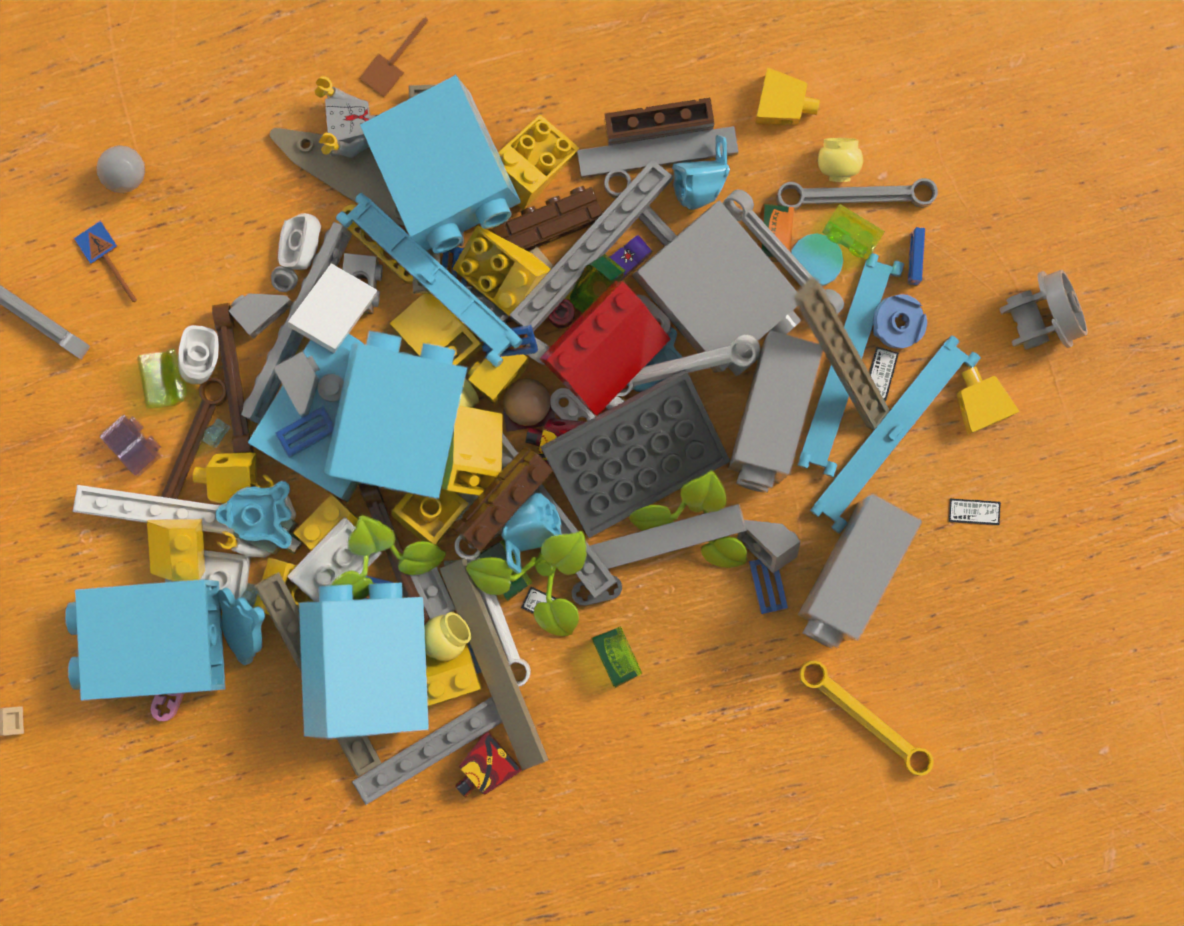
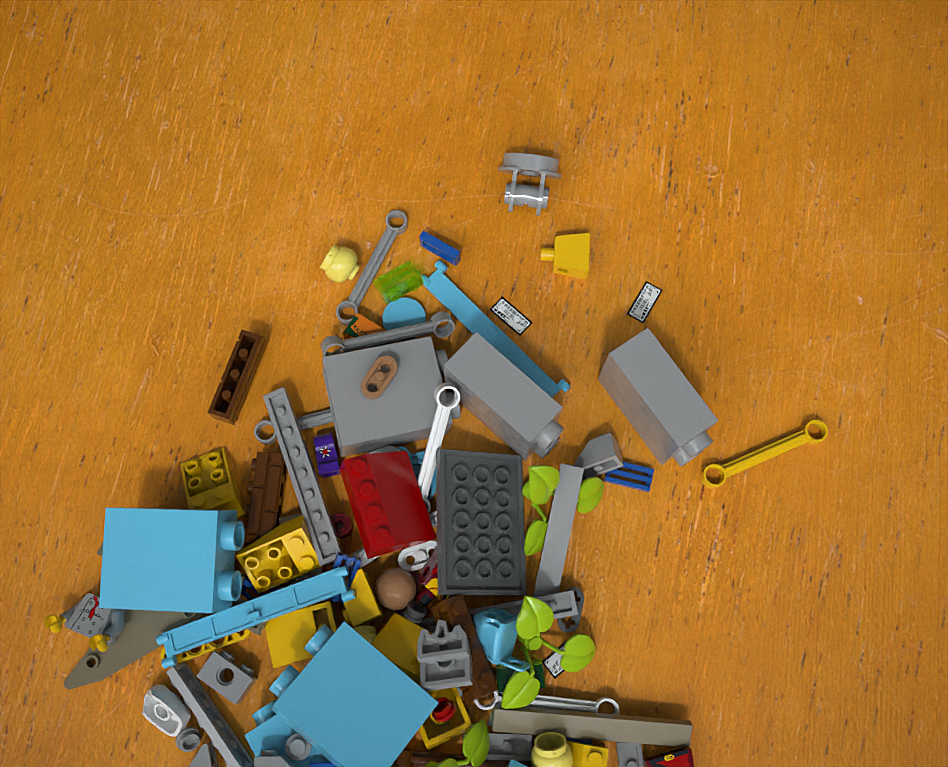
camera: 65 degrees left, 10 degrees down
(332, 308) = (234, 711): white tile -> none
(381, 73) = (75, 570): dark orange piece -> none
(434, 509) = (444, 710): none -> red plate
(482, 483) = (444, 658): none -> light grey plate
(514, 434) = (415, 611): none -> dark grey bush
(607, 269) = (335, 501): clear neon green piece -> none
(617, 656) = (631, 620): piece -> none
(662, 150) = (262, 383): light grey tile -> none
(701, 181) = (301, 369): medium azure piece -> none
(727, 270) = (379, 378): none -> medium nougat plate
(784, 100) = (274, 282): yellow torso -> none
(841, 352) = (484, 323): dark tan tile -> none
(885, 325) = (475, 292): medium blue plate -> none
(891, 431) = (558, 331): medium azure piece -> none

